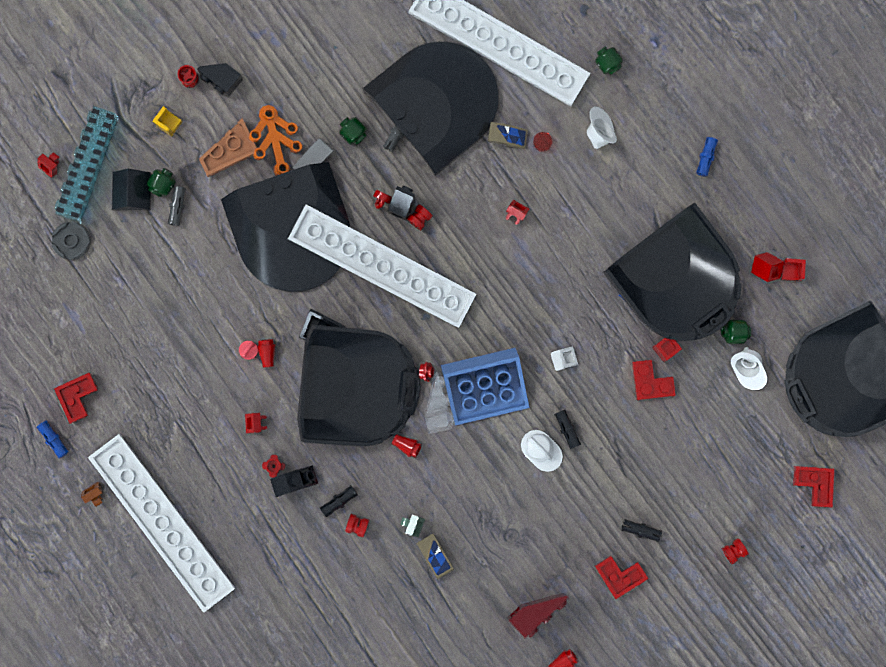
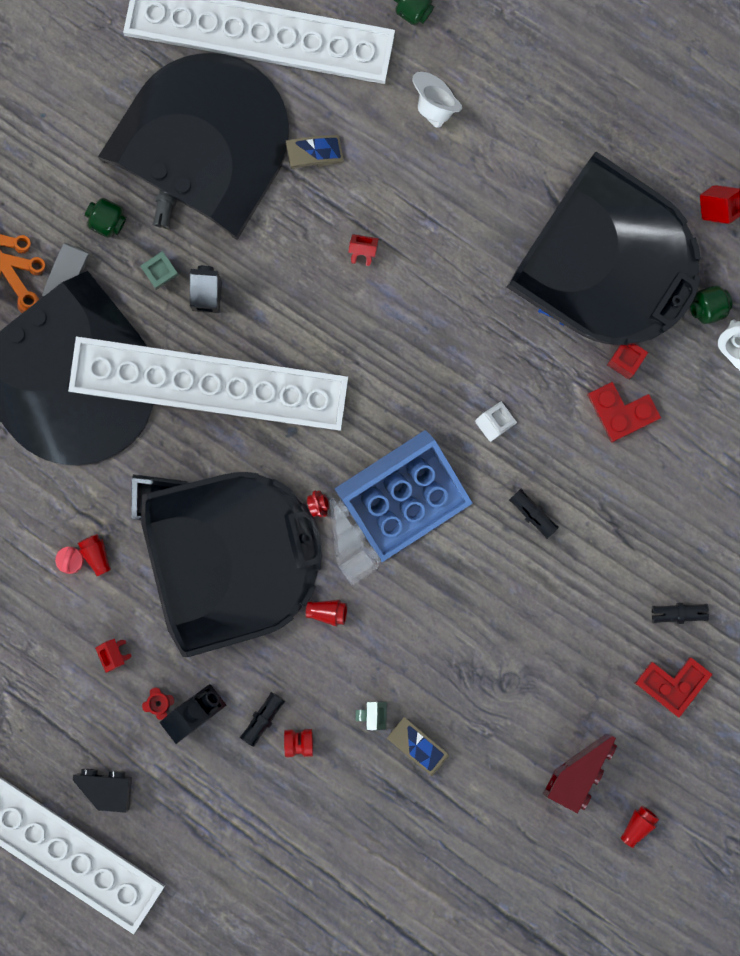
camera: 15 degrees left, 0 degrees up
(218, 512) = (105, 791): none -> black slope
(376, 178) = (159, 270): none -> sand green tile
(382, 198) = (176, 295): red tile -> none
(418, 219) = (234, 304): red wheel -> none
(541, 450) = (509, 554): white piece -> none
(542, 141) = (364, 143): clear red tile -> none
(707, 156) = (589, 86): blue pin -> none

